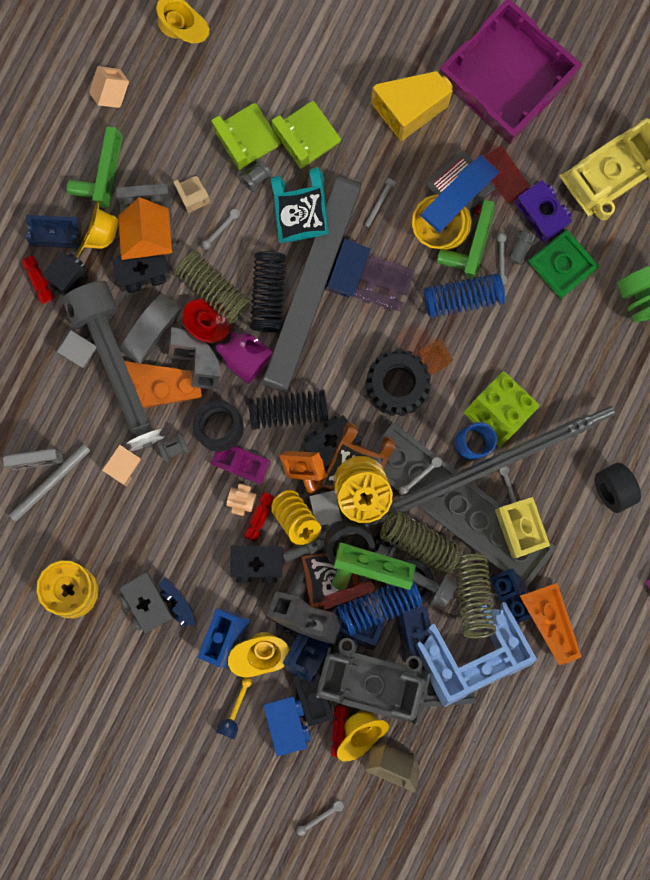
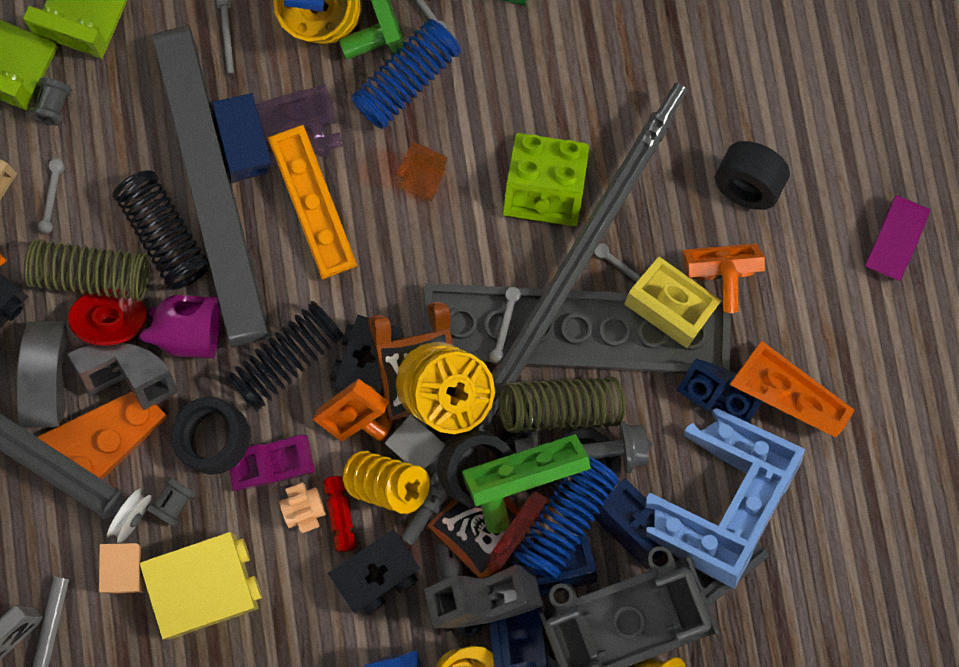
camera: 30 degrees left, 5 degrees down
(158, 503) = (200, 585): none -> light yellow brick
(300, 212) = (136, 107): flag -> none
(362, 333) = (312, 202): none -> light orange tile
(404, 361) = (391, 201): black tyre -> none
(471, 569) = (705, 451): olive piece -> none
(488, 435) = (548, 214): blue piece -> none
(569, 527) = (727, 261): none -> orange plate

